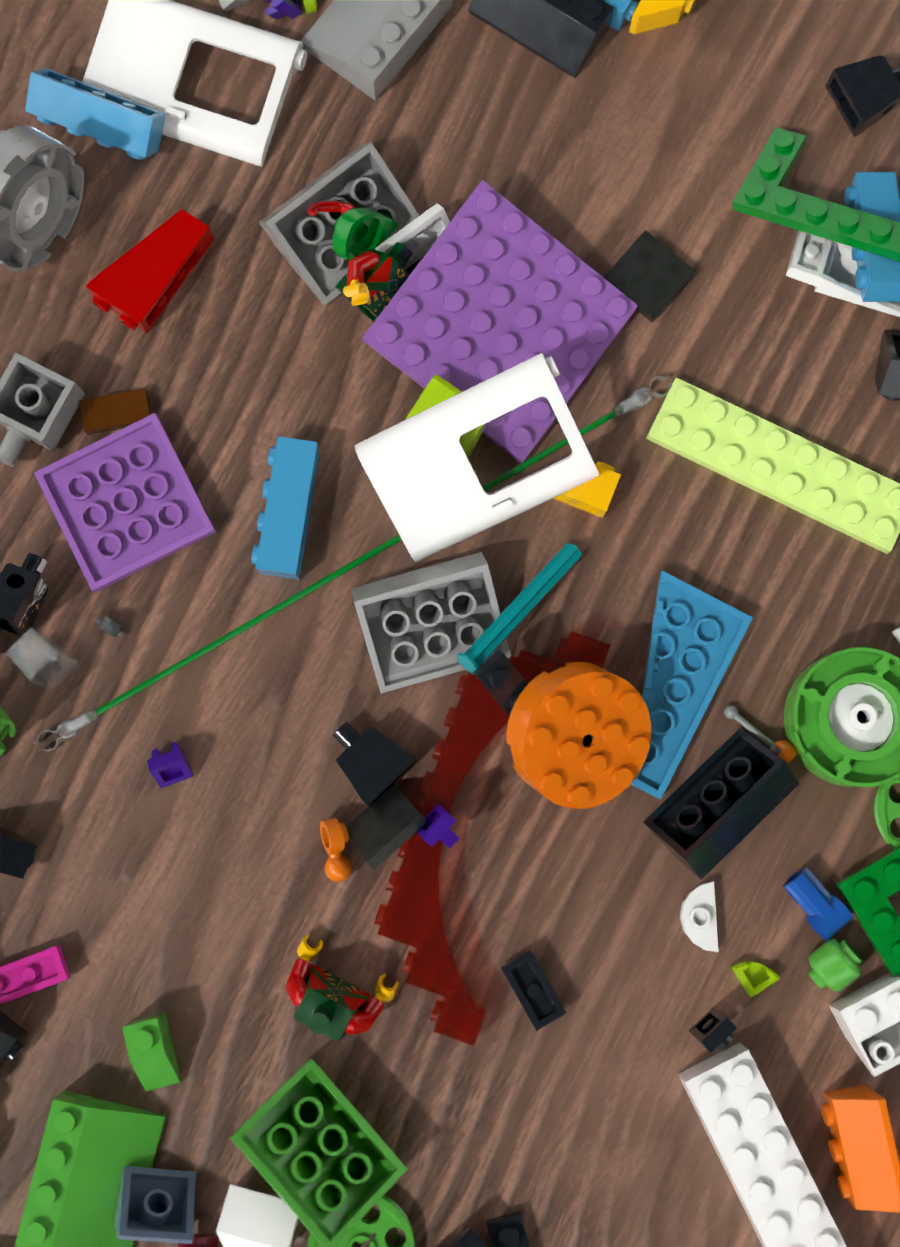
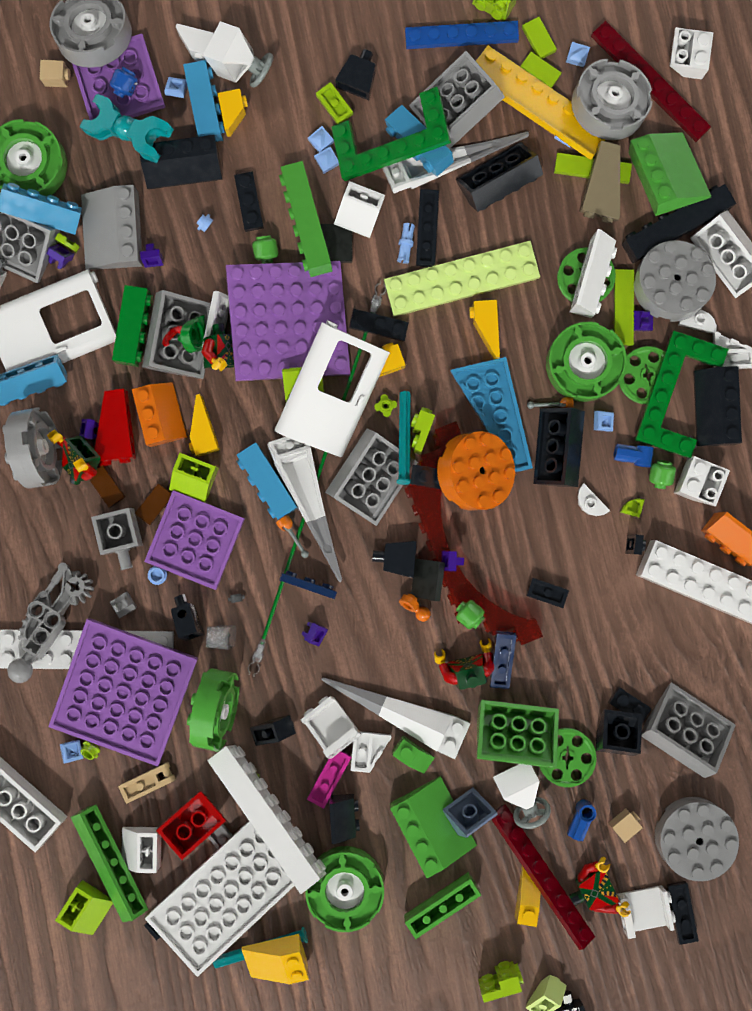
camera: 40 degrees left, 5 degrees up
(34, 506) = (157, 575): none -> light blue plate
(71, 264) = (78, 457): none -> torso
(75, 335) = (107, 487): none -> reddish brown tile
(77, 911) = (330, 726): none -> white panel
(98, 988) = (368, 750): none -> white wing
(117, 241) = (87, 429): none -> dark purple tile
(195, 418) = (193, 477): none -> lime slope
(212, 1036) = (432, 727): none -> white plate
(219, 690) = (308, 584): none -> dark blue plate
(226, 299) = (159, 413): none -> orange slope
(261, 370) = (202, 432): none -> yellow slope
(261, 585) = (286, 524): none -> hinge
(293, 160) = (132, 325): none -> green brick
(338, 531) = (298, 472): none -> white plate
(391, 1029) = (503, 659): none -> dark blue plate
(396, 95) = (151, 257): none -> dark purple tile
(399, 924) = (470, 614): none -> bright green head
(503, 110) = (204, 222): none -> light blue plate
(531, 553) = (380, 406): none -> lime plate
(553, 207) = (265, 249): none -> bright green head
(558, 611) = (422, 423): none -> lime plate
(584, 132) = (248, 201): none -> black plate
(616, 430) = (378, 325): none -> black plate
(639, 212) = (306, 219): none -> bright green brick
(721, 258) = (359, 209): none -> white slope
(733, 164) = (326, 160): none -> light blue tile
(745, 355) = (406, 243): none -> light blue pin
(747, 133) = (320, 139): none -> light blue tile
(764, 549) = (486, 323): none -> yellow slope
(791, 360) = (427, 228): none -> black plate
(805, 101) = (334, 103): none -> lime plate
(813, 820) = (603, 421): none -> light blue tile

